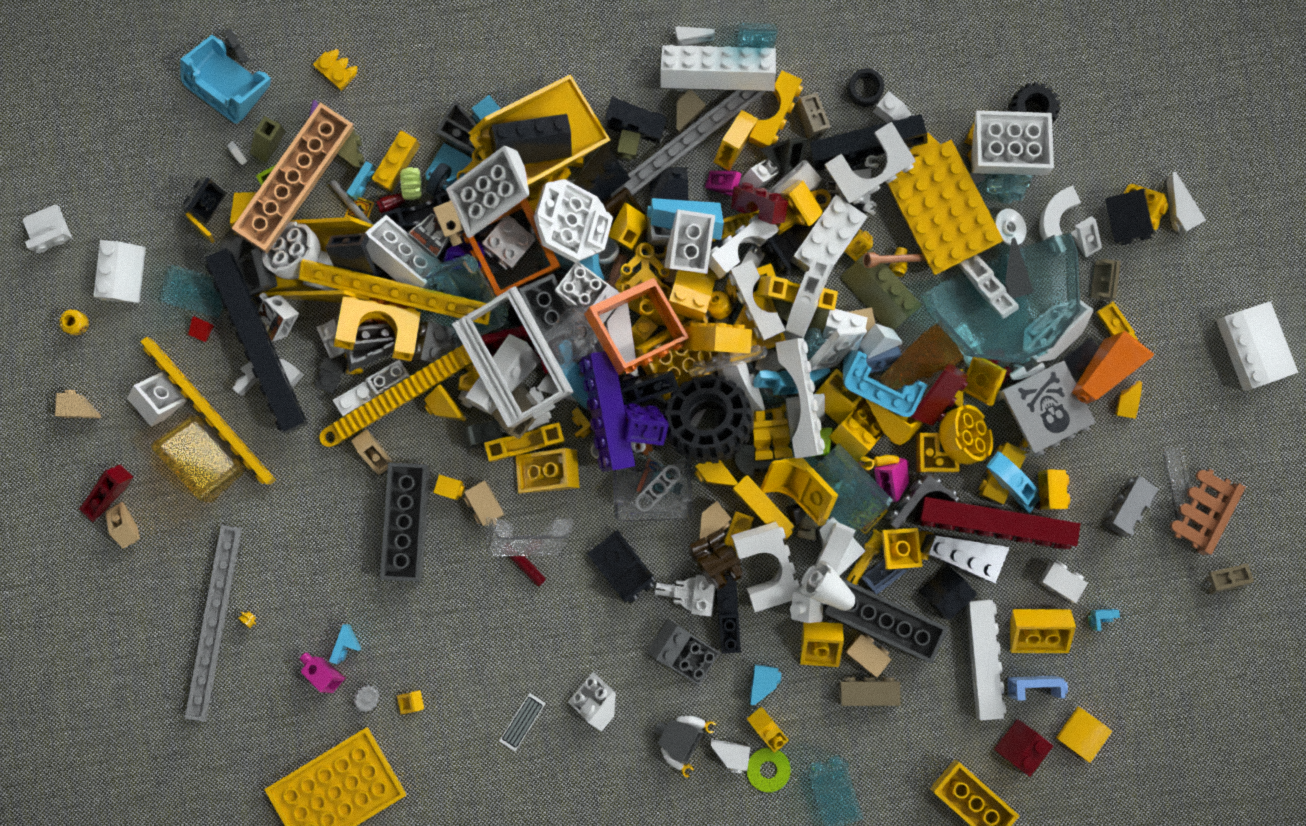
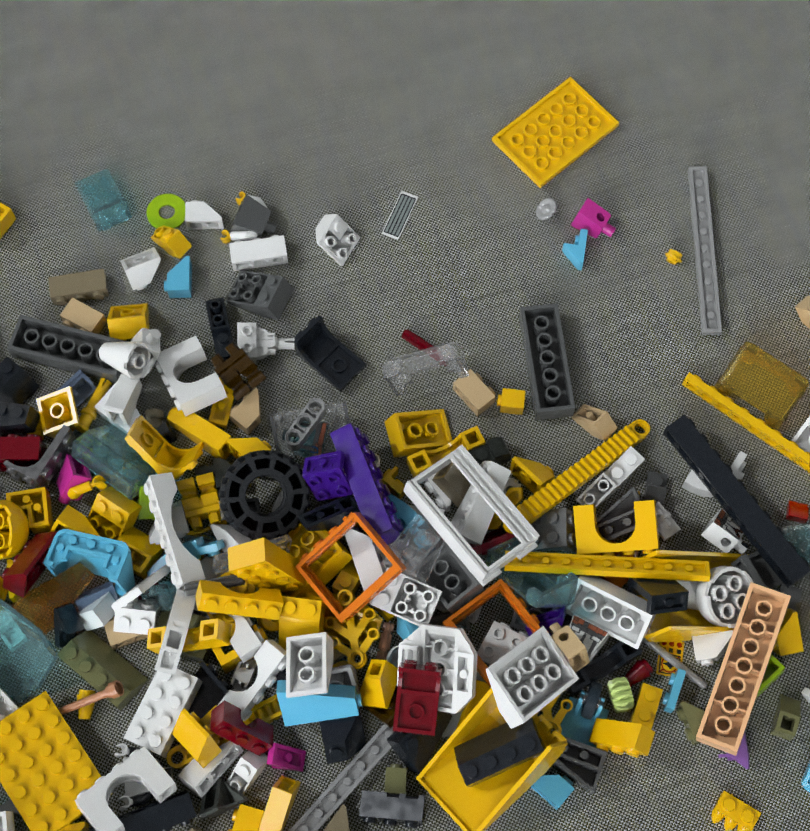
camera: 170 degrees right, 15 degrees down
(317, 209) = (710, 646): none -> white slope
(410, 702) = (505, 214): yellow slope -> none
(419, 139) = (622, 737): none -> yellow brick
(595, 197) = (417, 697): none -> dark red bracket
(677, 700) = (258, 253): none -> white brick
(769, 314) = (216, 598): none -> yellow arch
(773, 332) = (227, 581): none -> dark grey axle
(802, 704) = (141, 268): none -> white slope
(859, 245) = (126, 713): yellow bracket -> none
(910, 333) = (66, 624): none -> black slope

